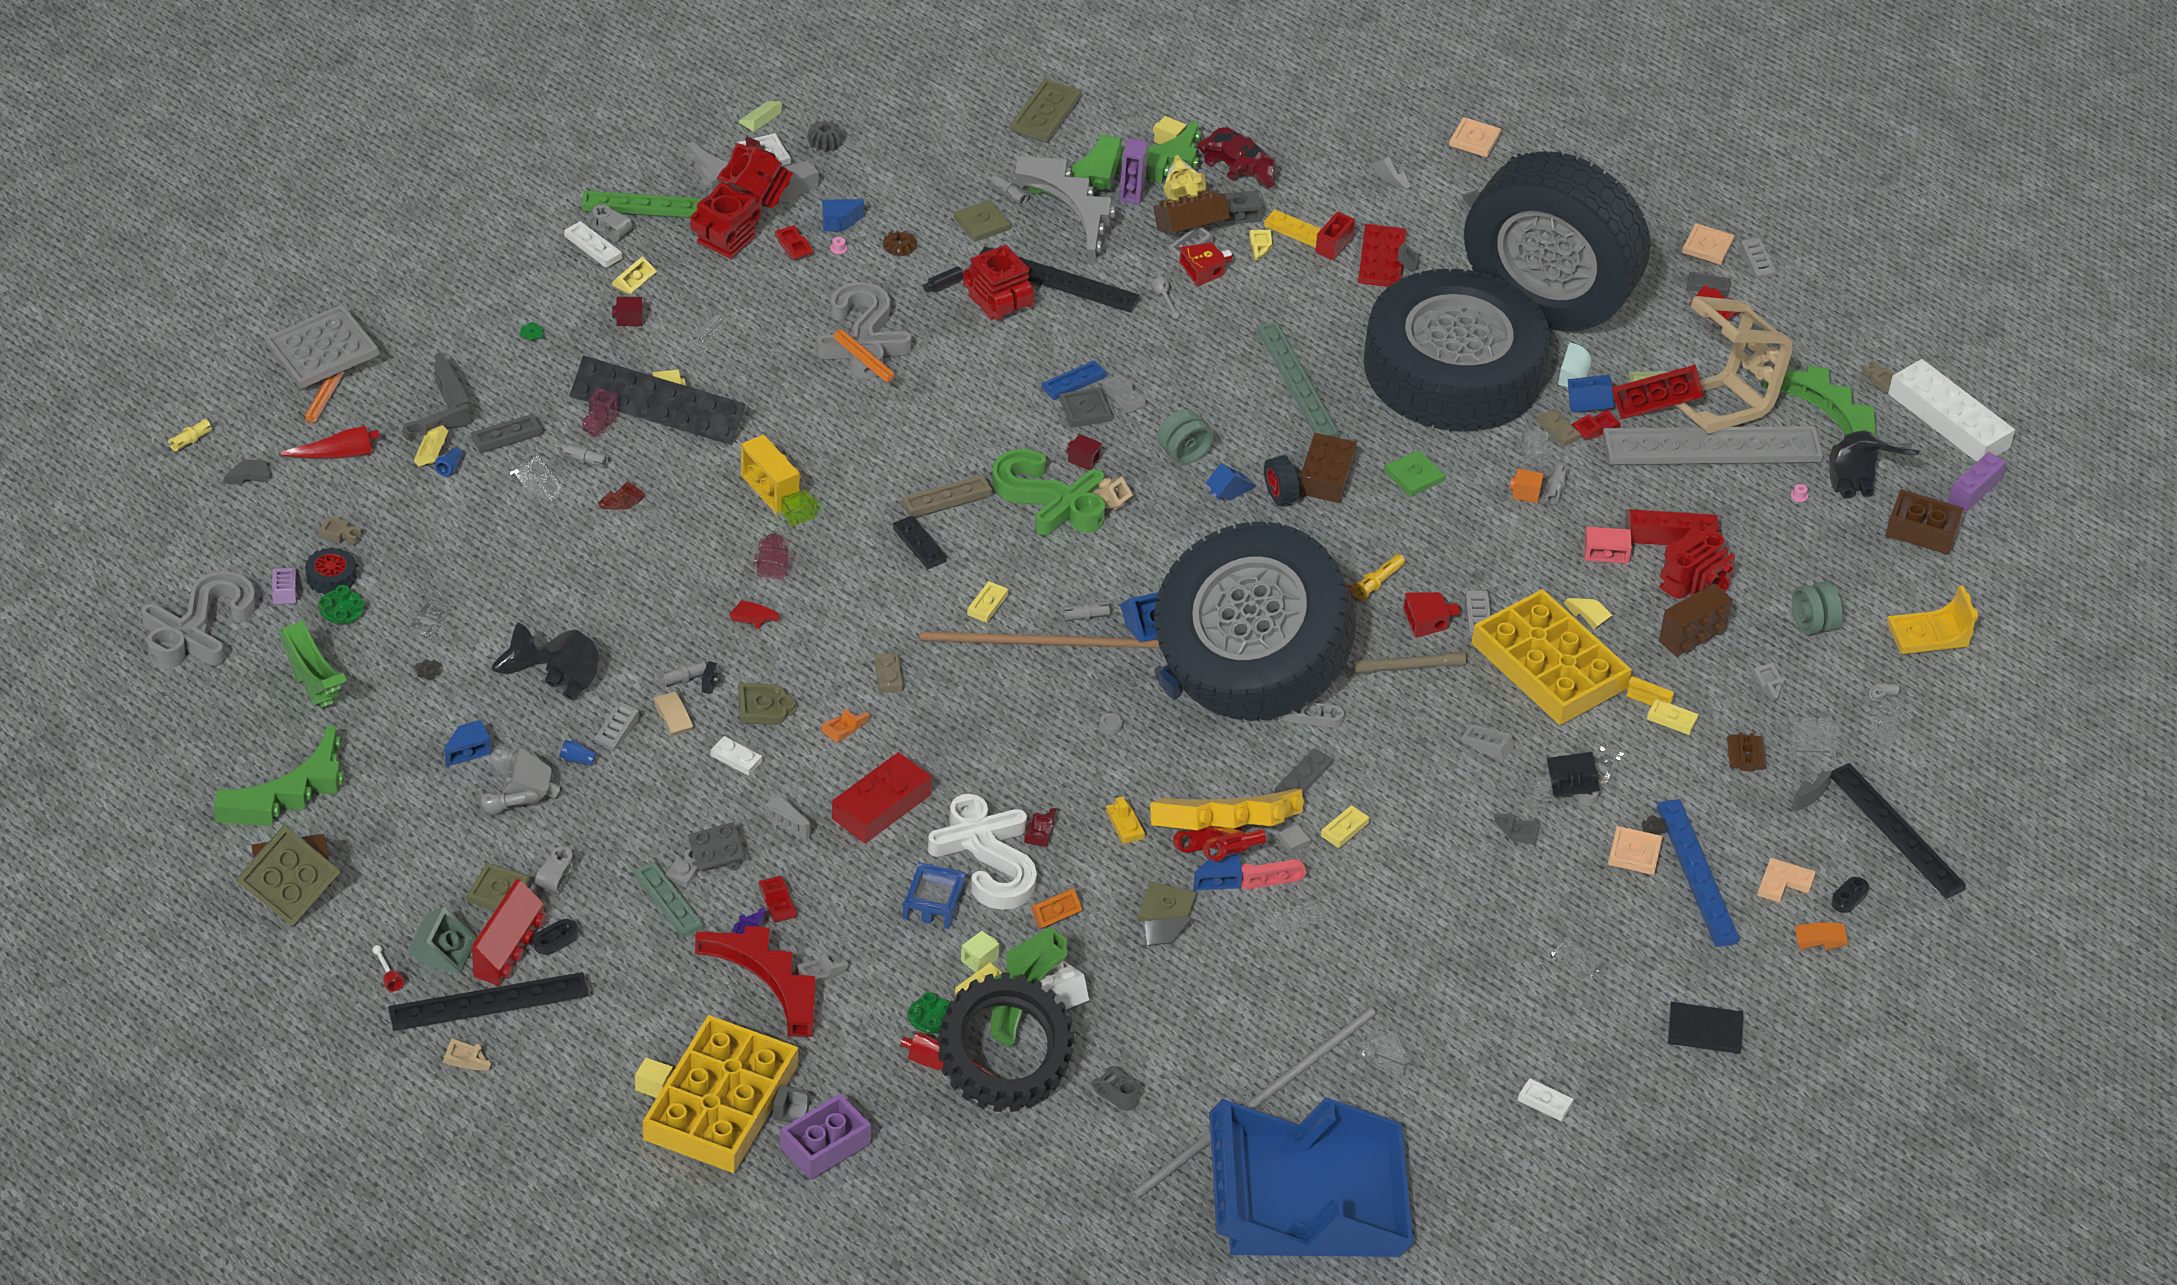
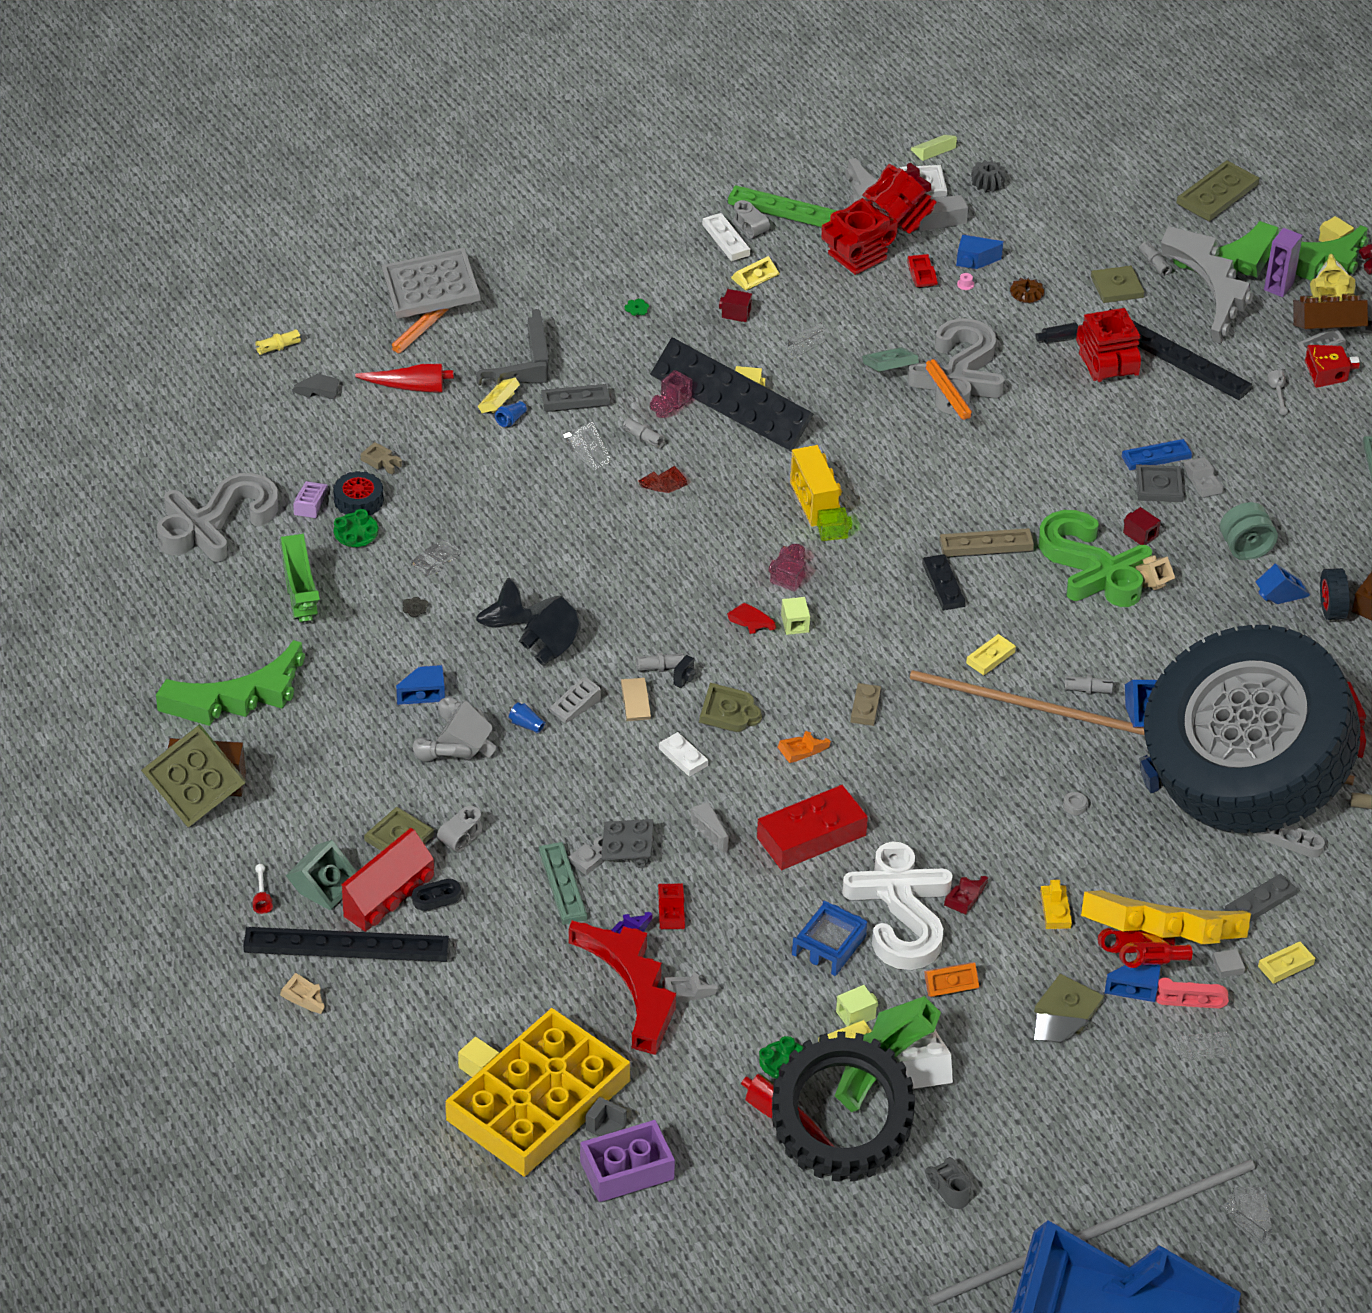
camera: 20 degrees right, 0 degrees up
(794, 602) = (795, 615): none -> yellowish green brick
(795, 336) = (890, 359): none -> sand green tile

